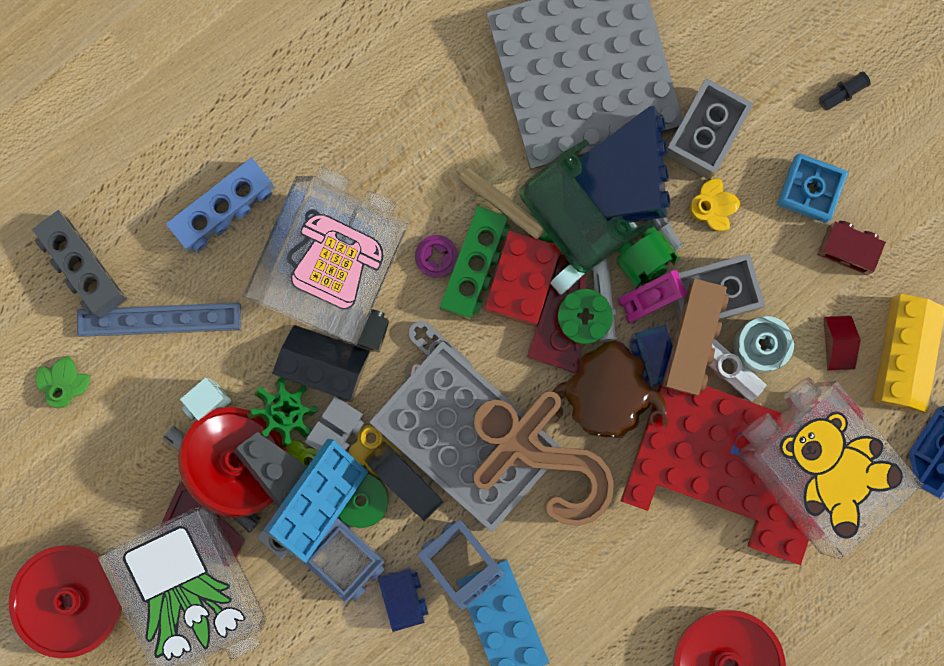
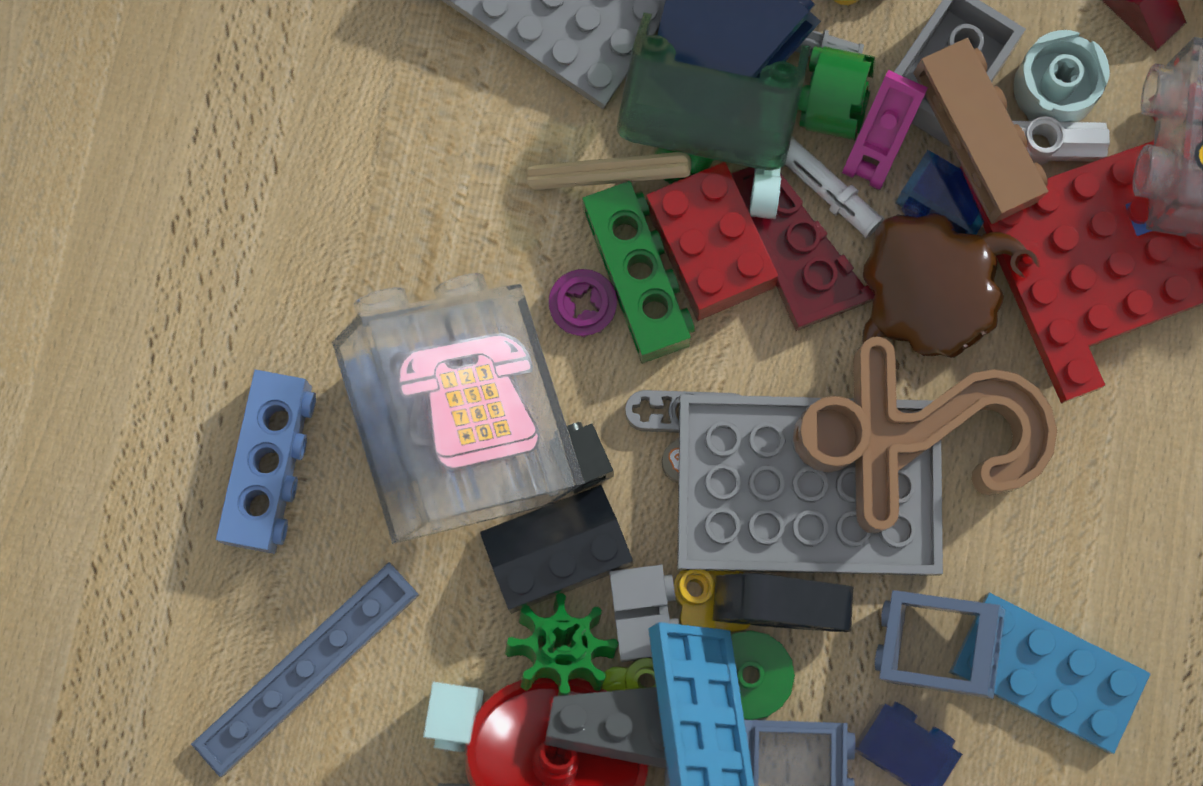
camera: 35 degrees left, 5 degrees down
(107, 293) = (81, 665): dark grey brick -> none
(572, 325) = (830, 195): green plate -> none

